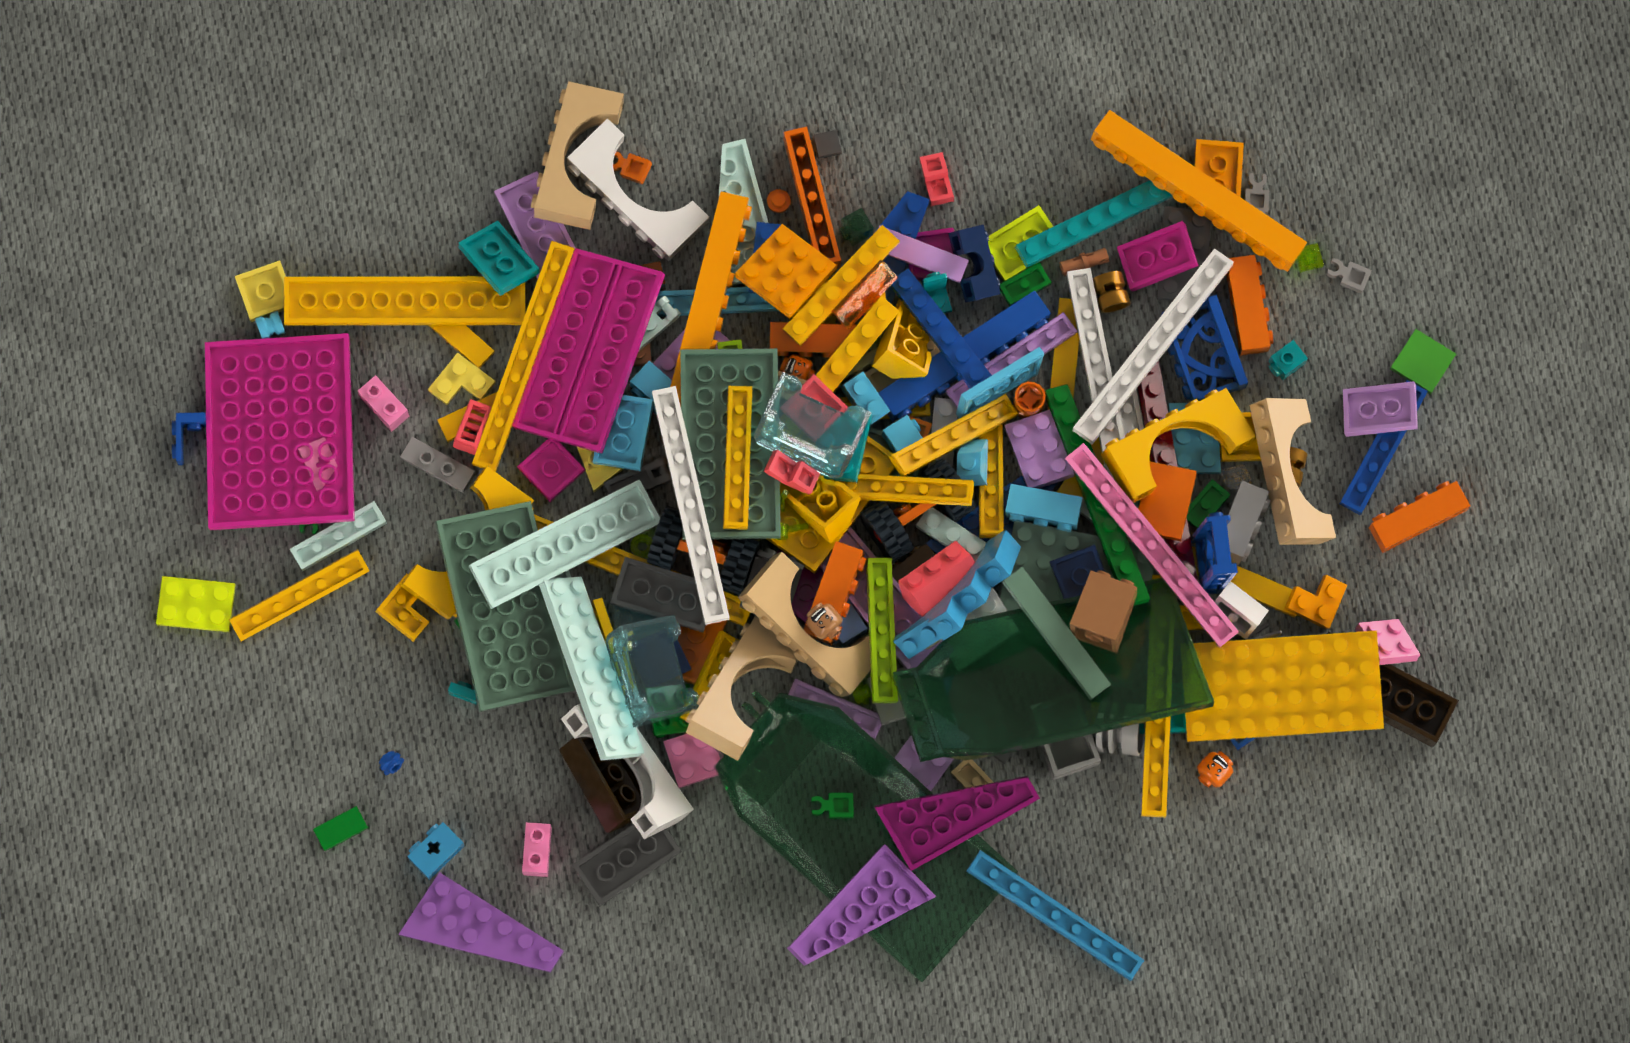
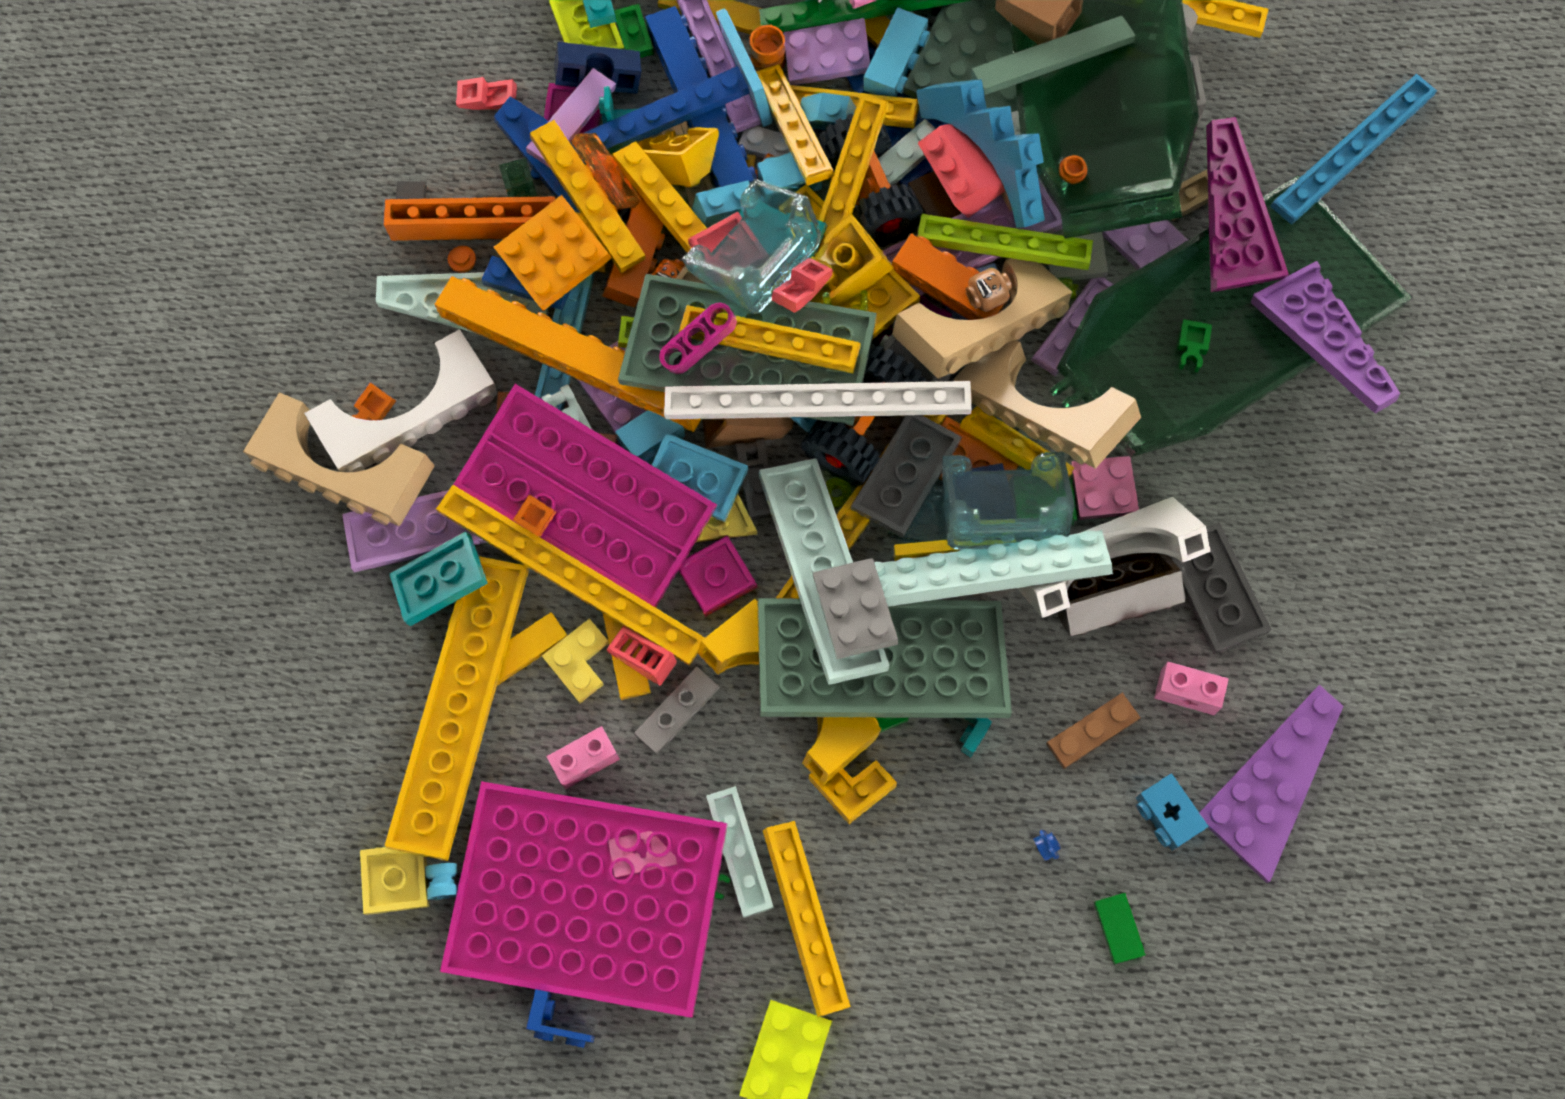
camera: 70 degrees left, 5 degrees down
(489, 783) = (1093, 730): none -> medium nougat plate
(532, 572) = (855, 608): none -> light grey plate
(560, 316) = (534, 515): none -> orange plate
(729, 405) = (713, 335): none -> dark pink beam
(964, 674) = (1073, 169): none -> orange plate
(1073, 570) = (982, 32): dark blue plate -> none

